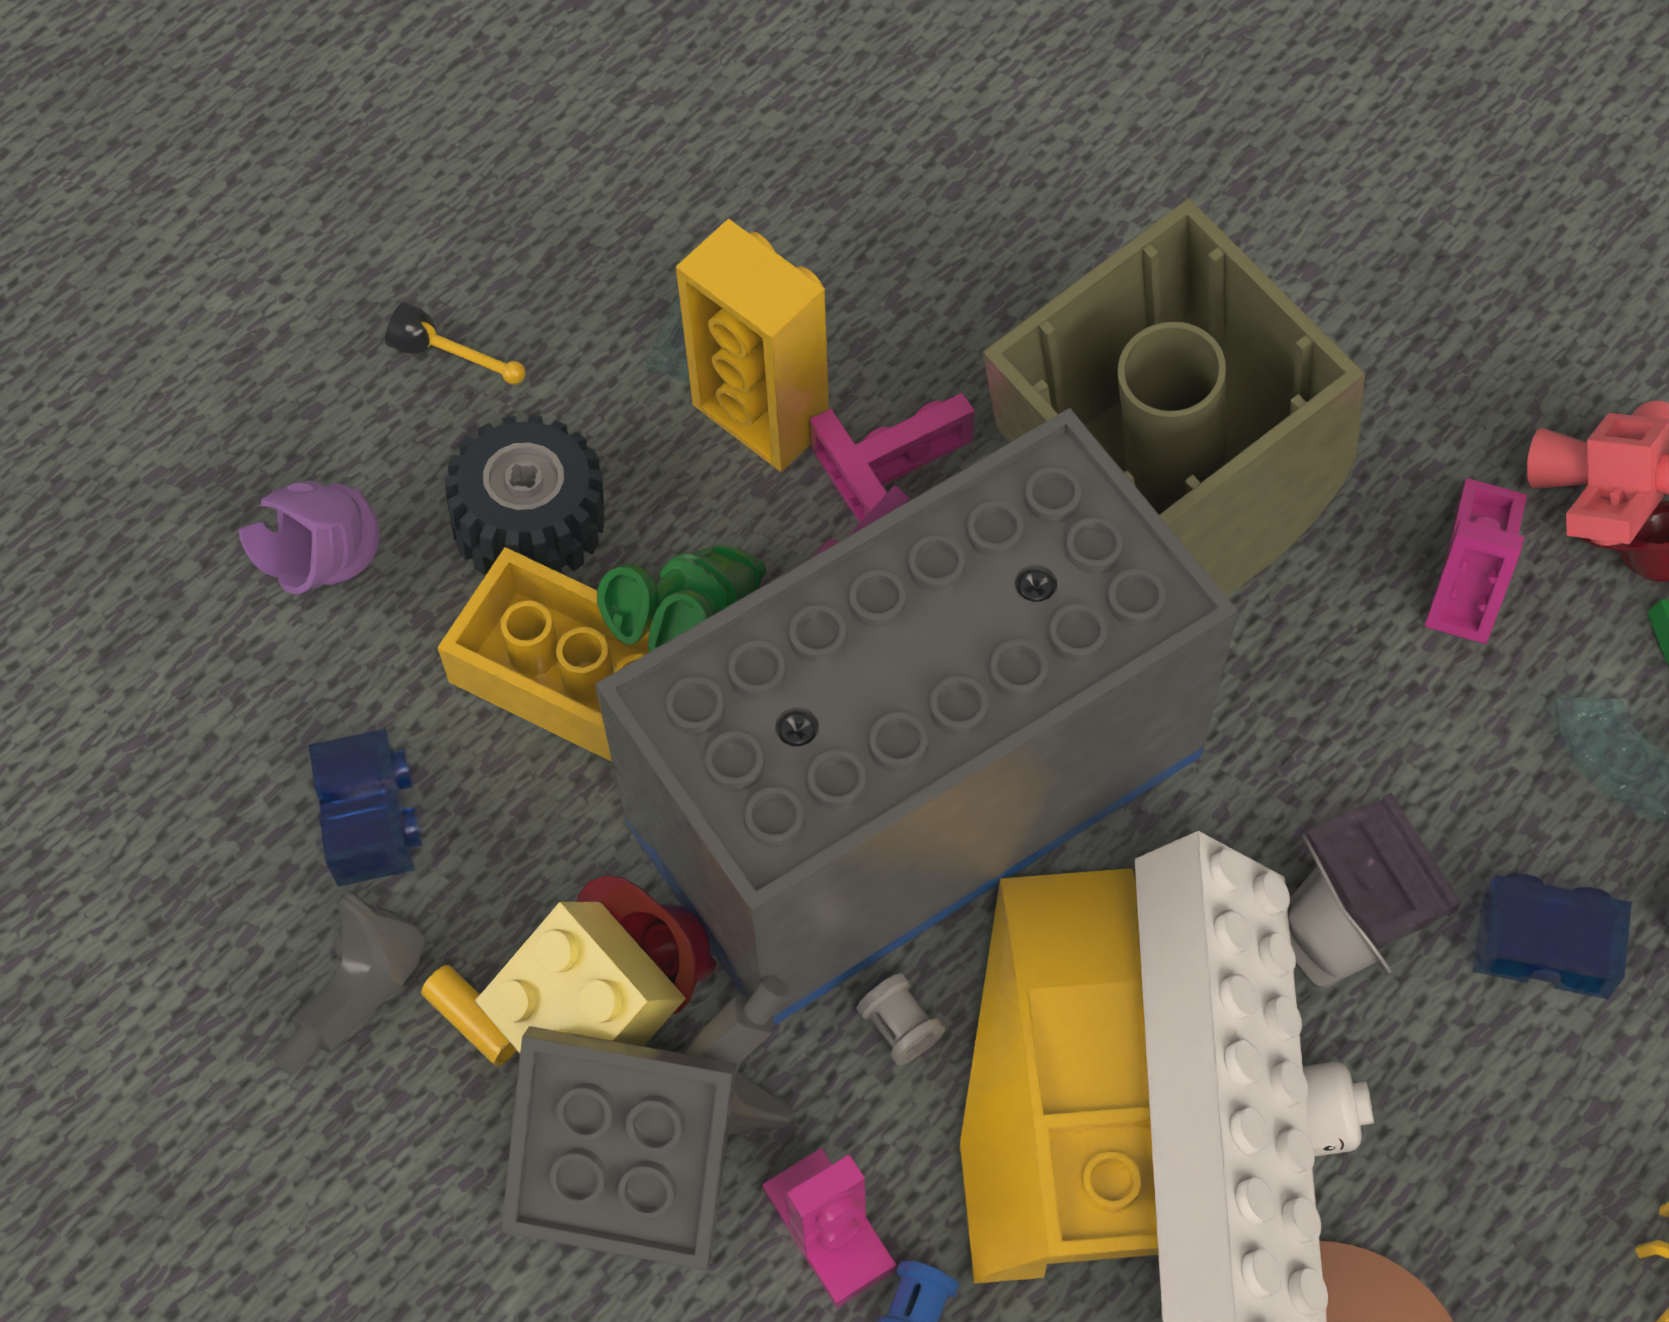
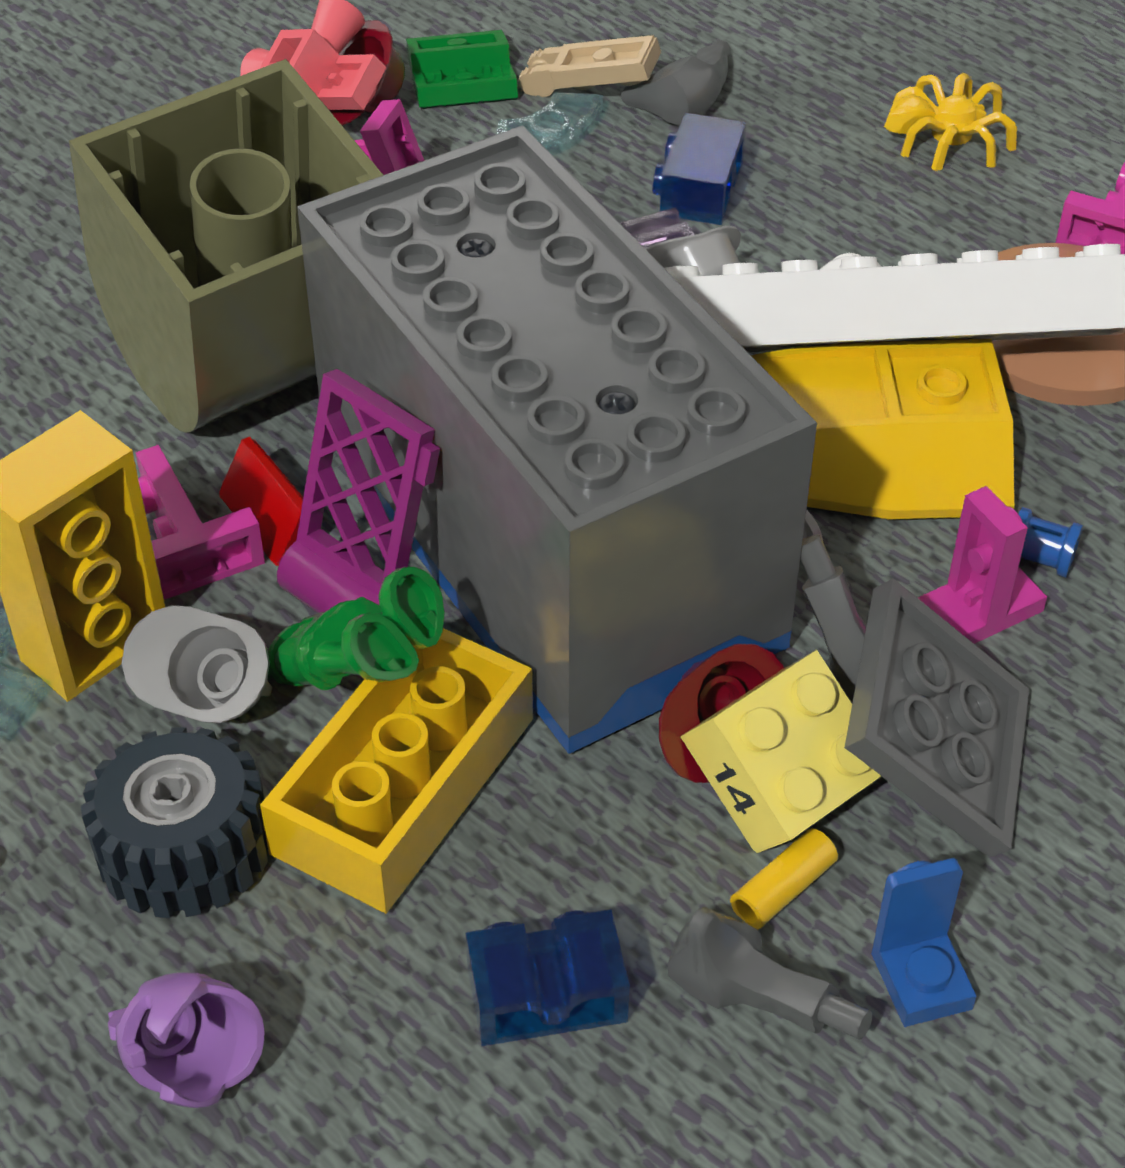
camera: 90 degrees left, 15 degrees down
(371, 1133) = (915, 946): none -> blue bracket
(696, 492) = (196, 664): none -> light grey piece

